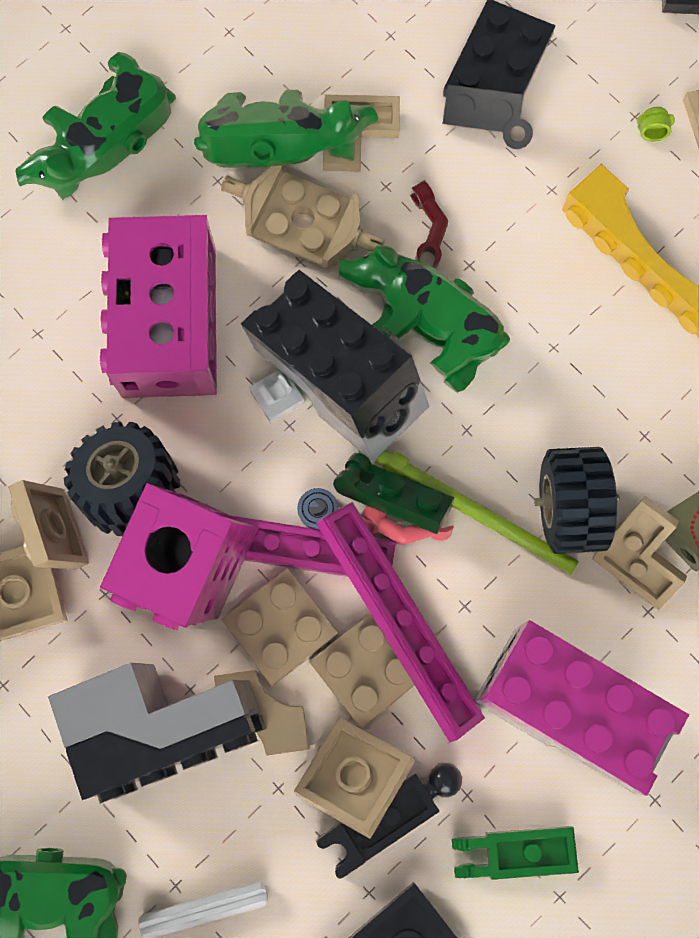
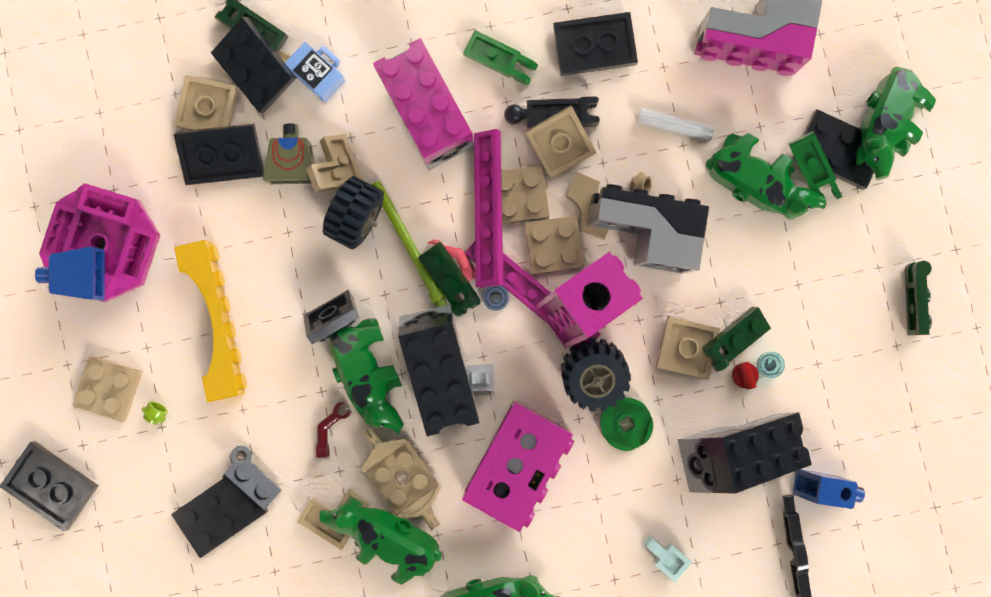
camera: 145 degrees left, 10 degrees up
(29, 432) = (632, 437): none -> green plate
(47, 526) = (651, 370): tan plate -> none
(204, 785) = (641, 181): none -> tan plate
(517, 351) = (330, 316): none -> black plate

